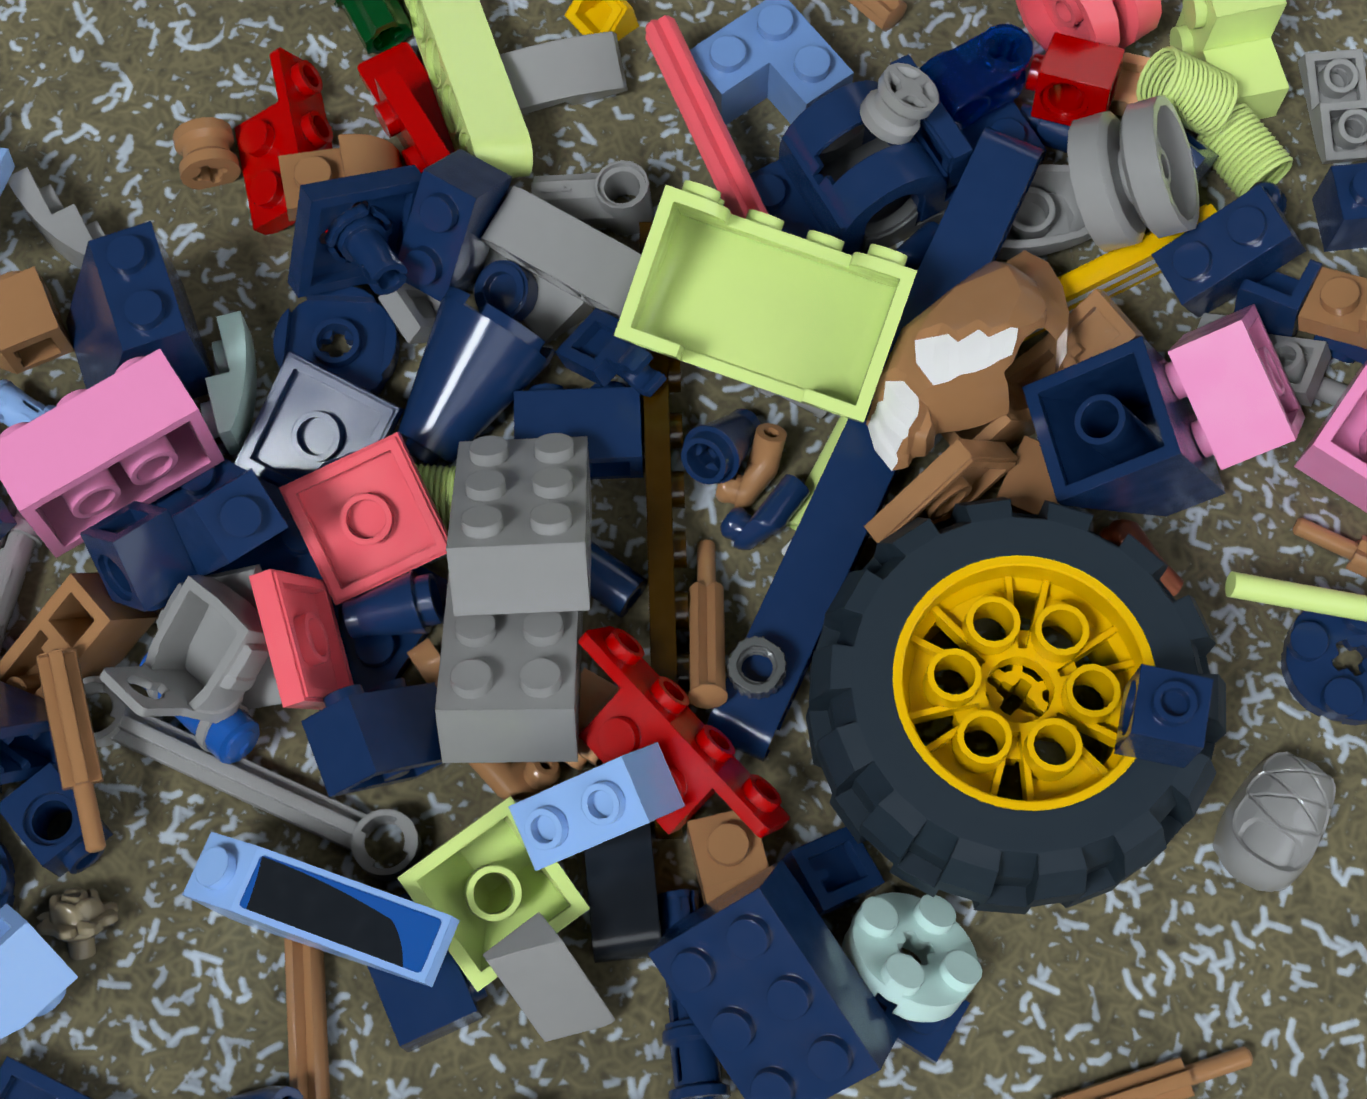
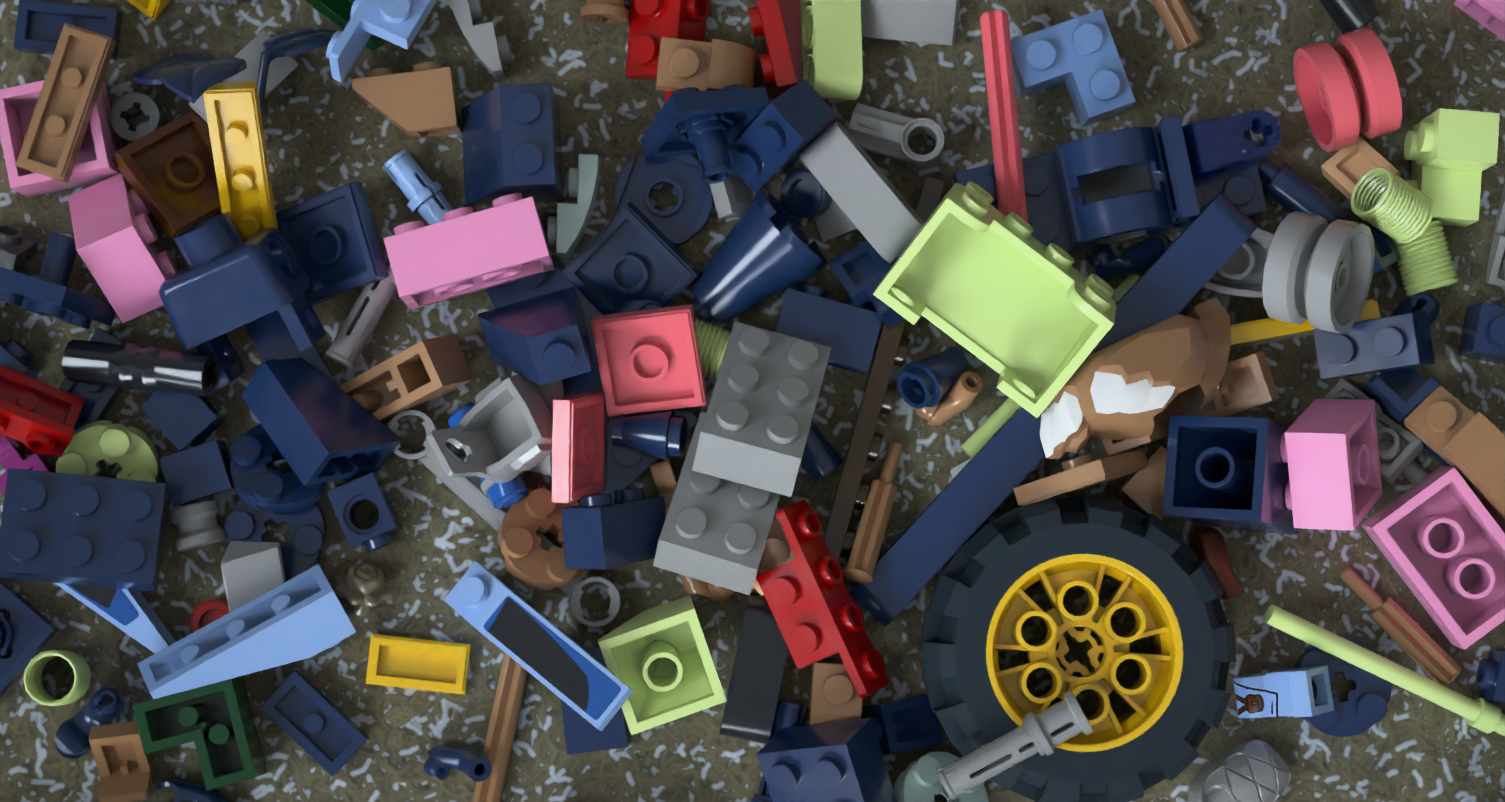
camera: 15 degrees right, 15 degrees up
(73, 738) = (394, 462): medium nougat axle -> none
(139, 555) = (476, 345): dark blue brick -> none
(175, 999) = (418, 664): none -> yellow tile
(267, 794) = (521, 546): none -> medium nougat plate
(547, 981) = (682, 741): light grey slope -> none
(596, 806) = (753, 640): light blue brick -> none
(750, 647) = (895, 581): dark grey axle -> none
(770, 518) = (950, 443): dark blue arm -> none
(899, 103) = (1166, 168): light grey wheel -> none
(1002, 796) = (1037, 734): none -> light grey pin
(1073, 79) = (1308, 165): red brick -> none
(1164, 716) = (1169, 717): dark blue brick -> none
(1286, 681) = (1283, 693): none -> light blue leg

